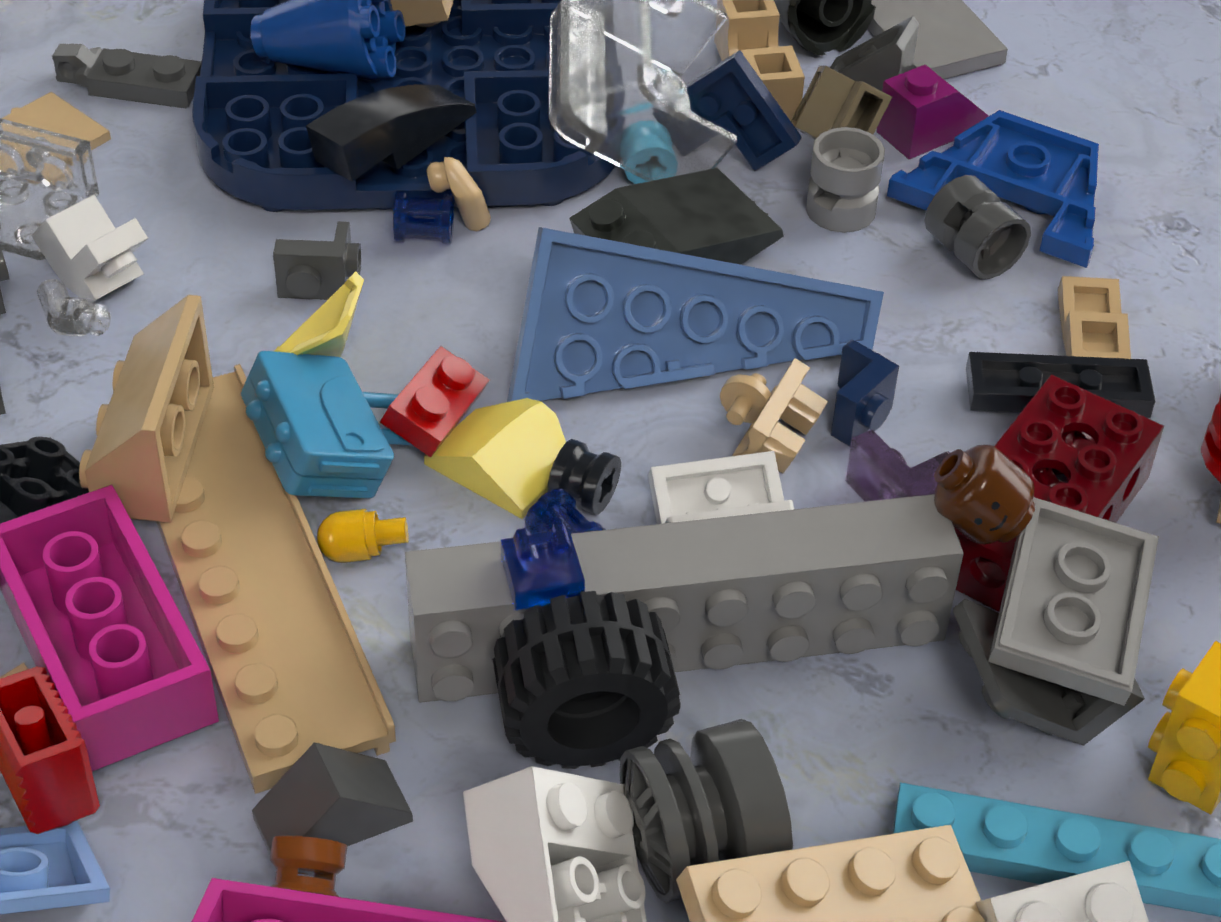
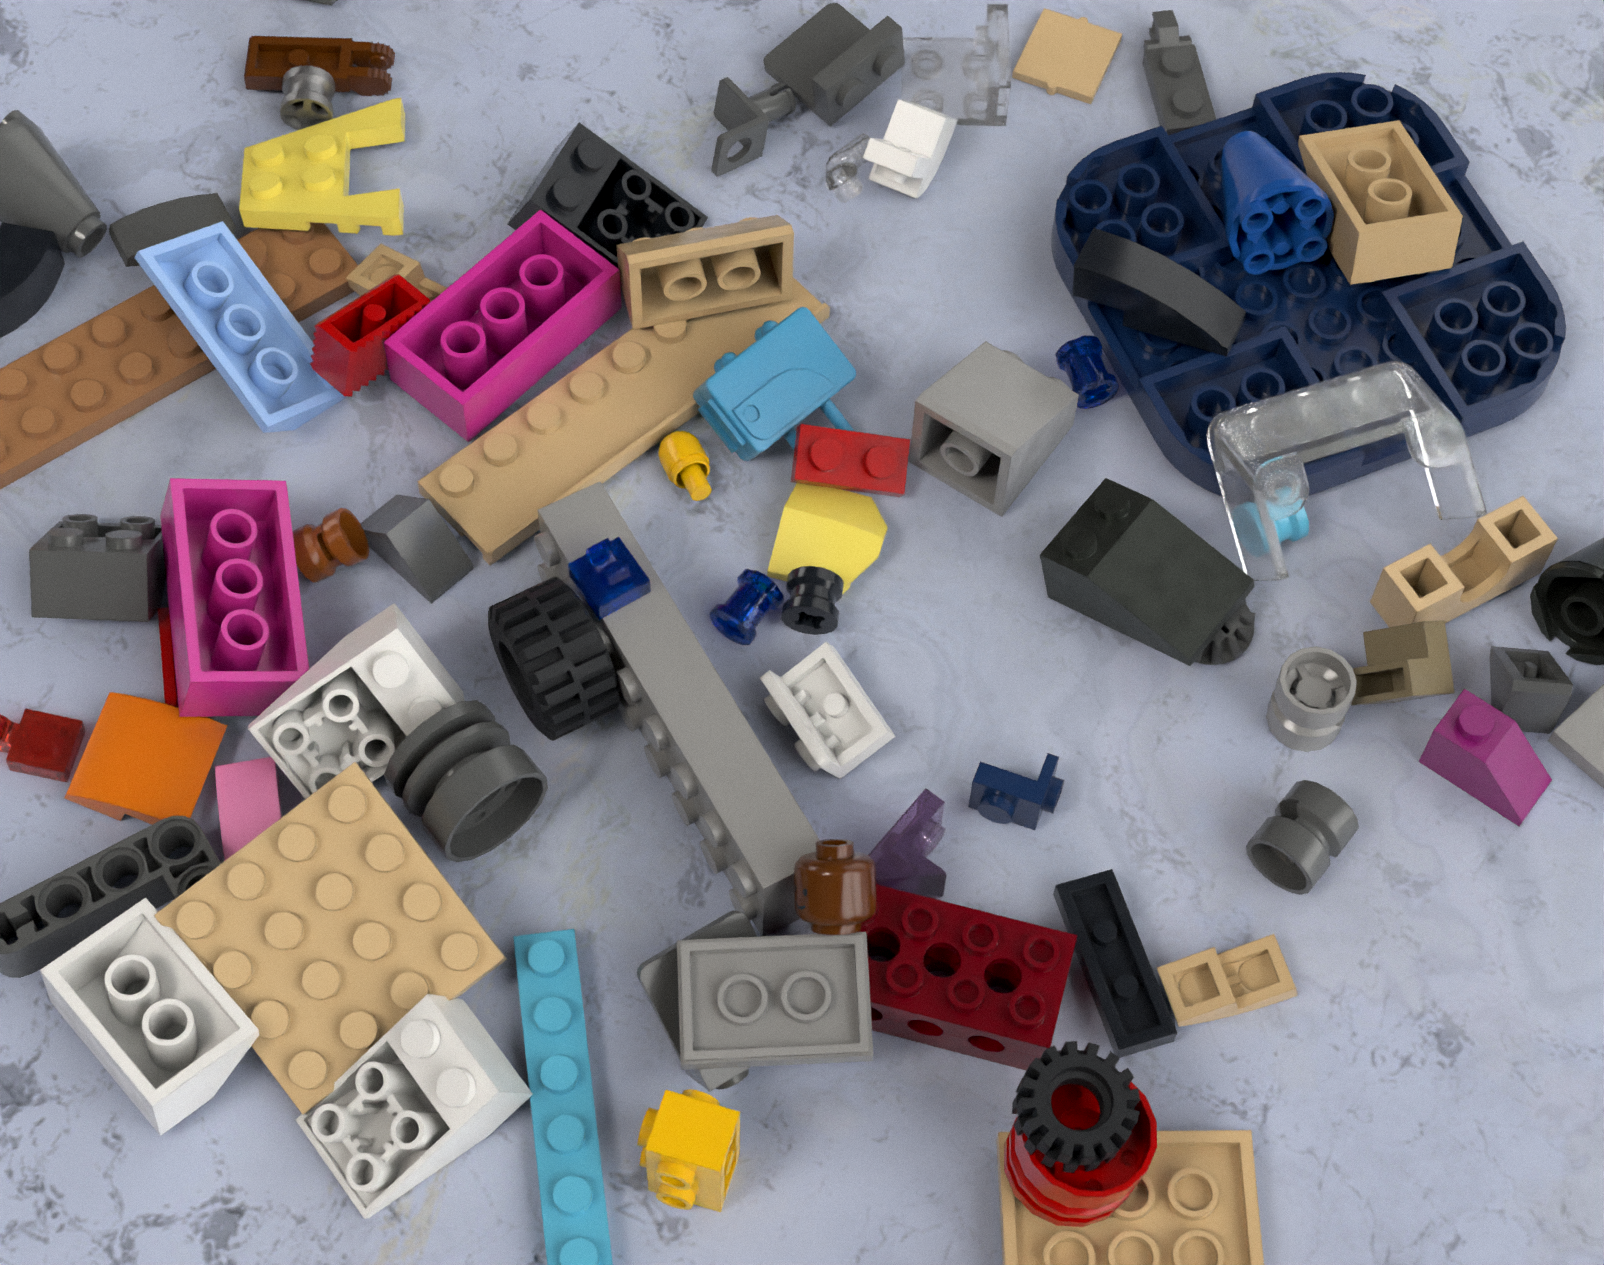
camera: 70 degrees right, 15 degrees up
(315, 267) = (971, 314): dark grey bracket -> none
(329, 326) = (883, 350): light yellow slope -> none
(454, 286) = (990, 425): none -> light grey slope
(467, 194) = (1121, 384): tan arm -> none
(650, 316) = (1017, 596): medium blue wing -> none
(741, 103) = (1354, 555): dark blue plate -> none
(750, 401) = (979, 729): tan hips -> none
(1024, 165) = (1444, 866): blue wing -> none

